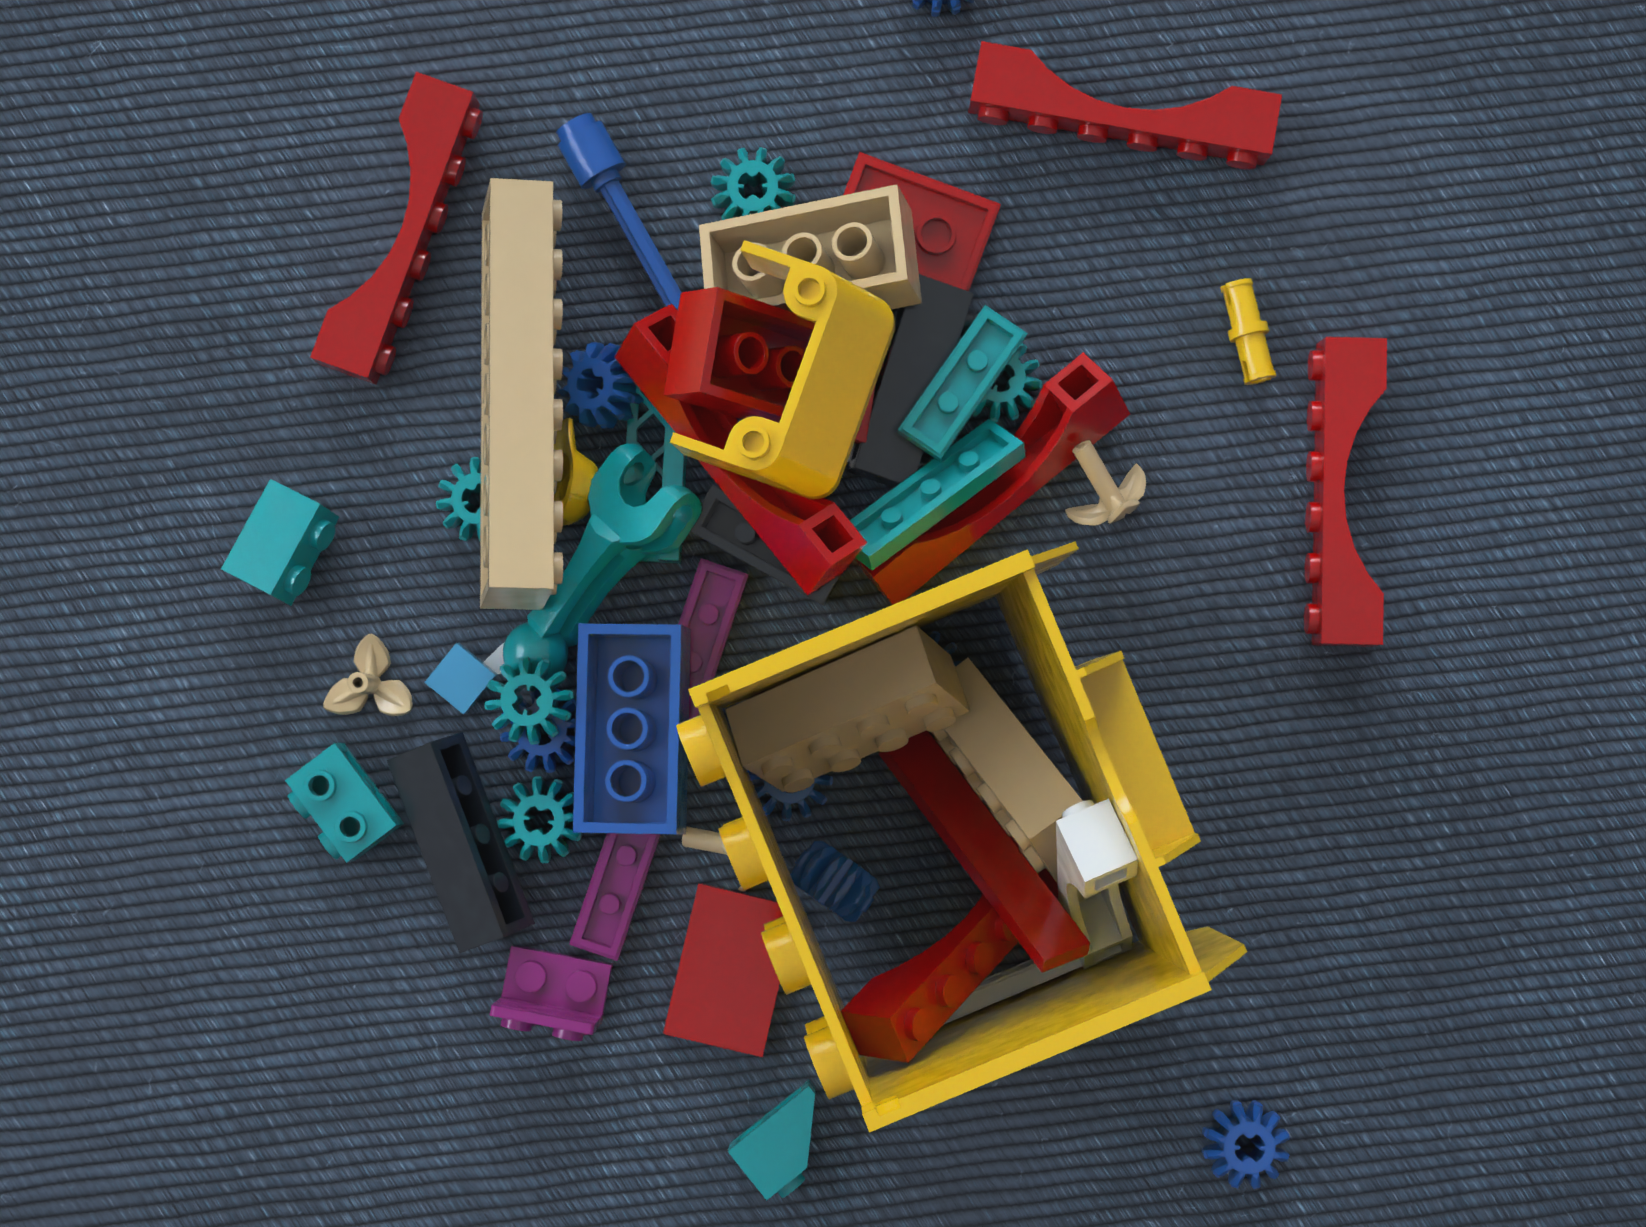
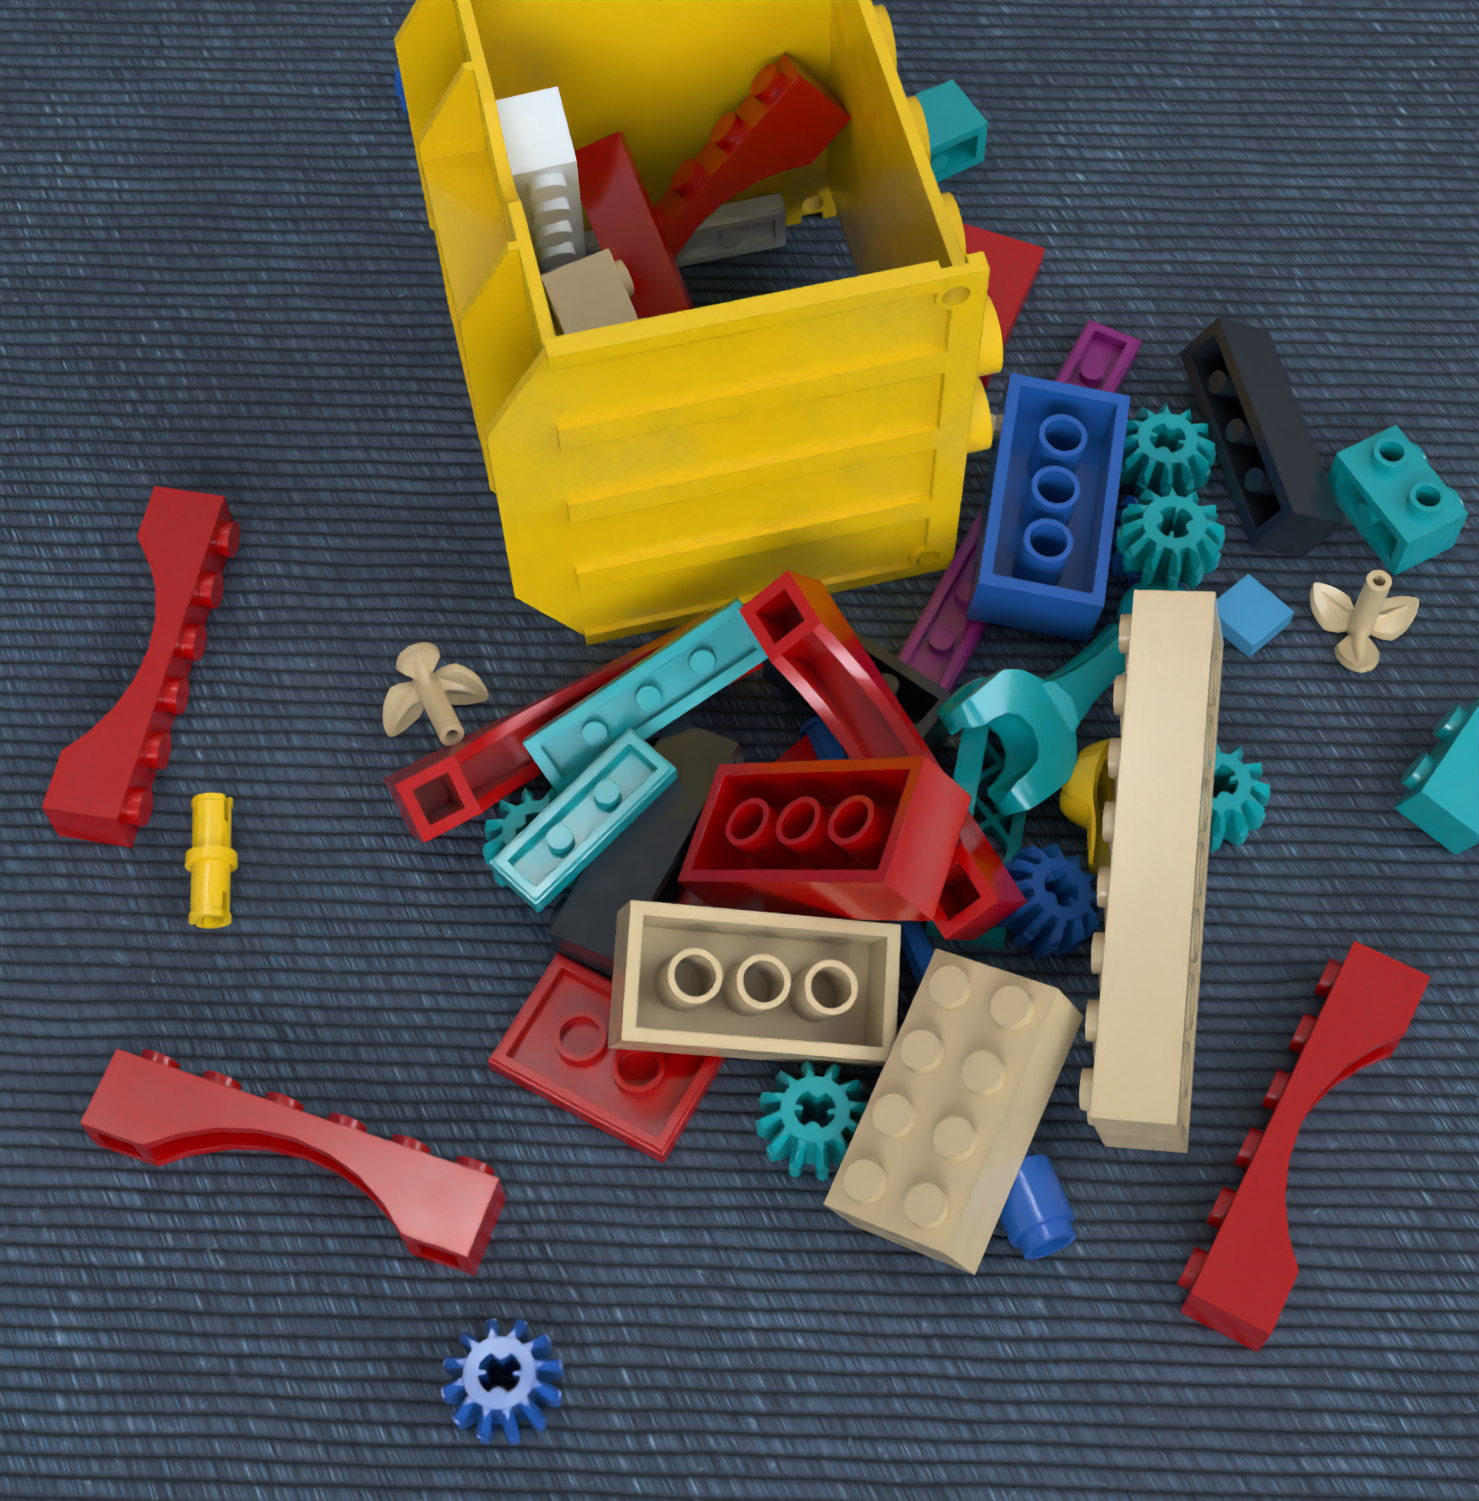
camera: 170 degrees left, 25 degrees down
(553, 993) = (1166, 277): magenta bracket -> none
(651, 192) = (955, 1109): none -> tan brick
(830, 389) = (742, 859): yellow windscreen -> none

